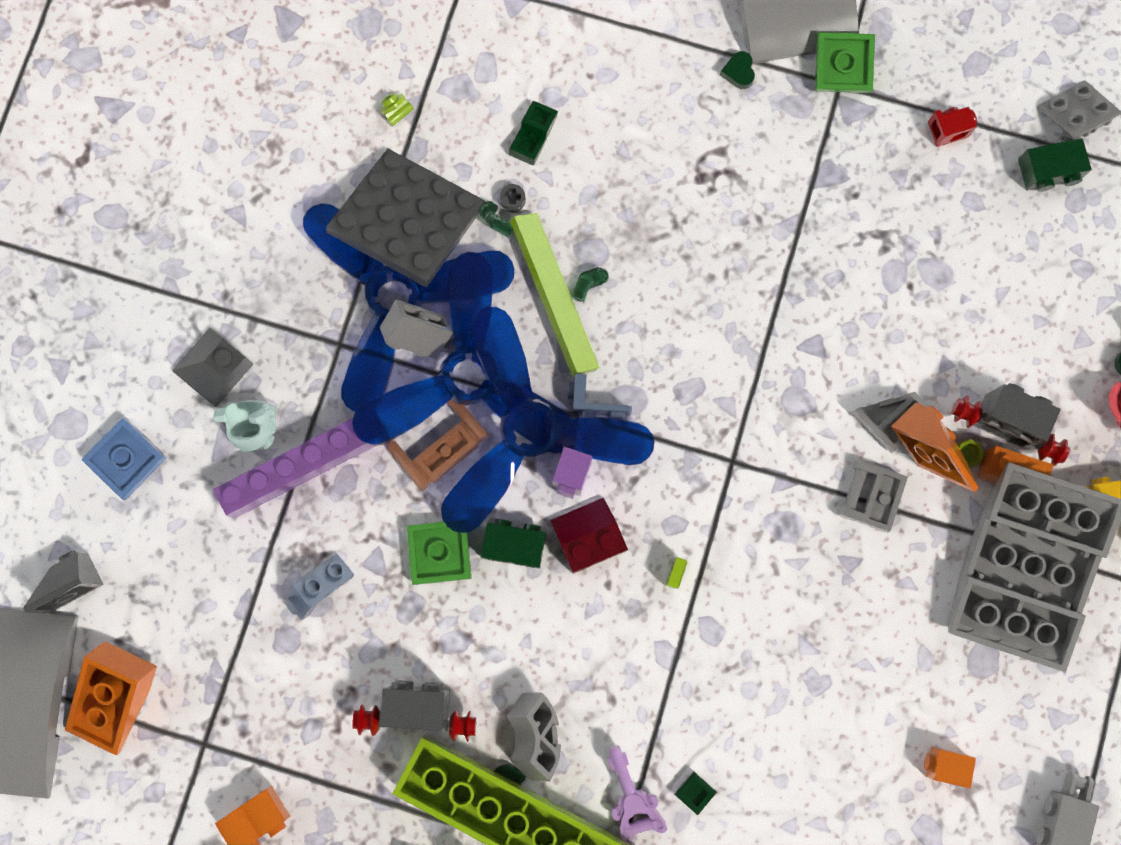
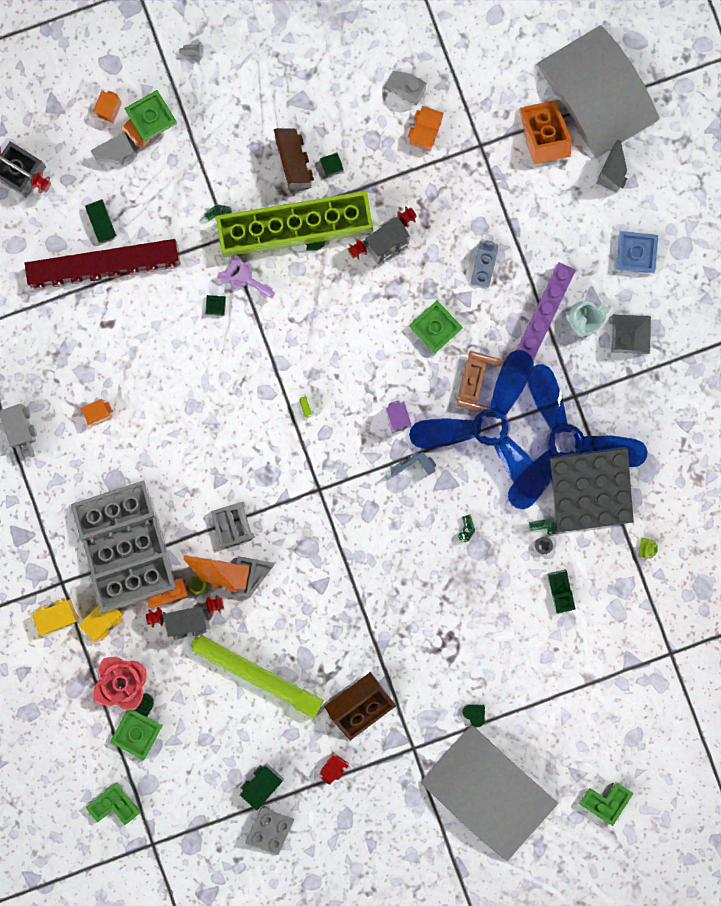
camera: 140 degrees right, 5 degrees up
(417, 330) = (536, 430): light grey brick -> none
(507, 369) = (438, 383): clear blue piece -> none
(513, 544) = (400, 359): dark green brick -> none
(536, 736) = (316, 272): light grey brick -> none
(554, 294) = (480, 508): lime tile -> none
(589, 535) = (365, 392): dark red slope -> none
(844, 62) = (419, 761): bright green plate -> none
(870, 172) = (359, 706): none -> reddish brown slope
(934, 225) = (257, 675): none -> lime brick

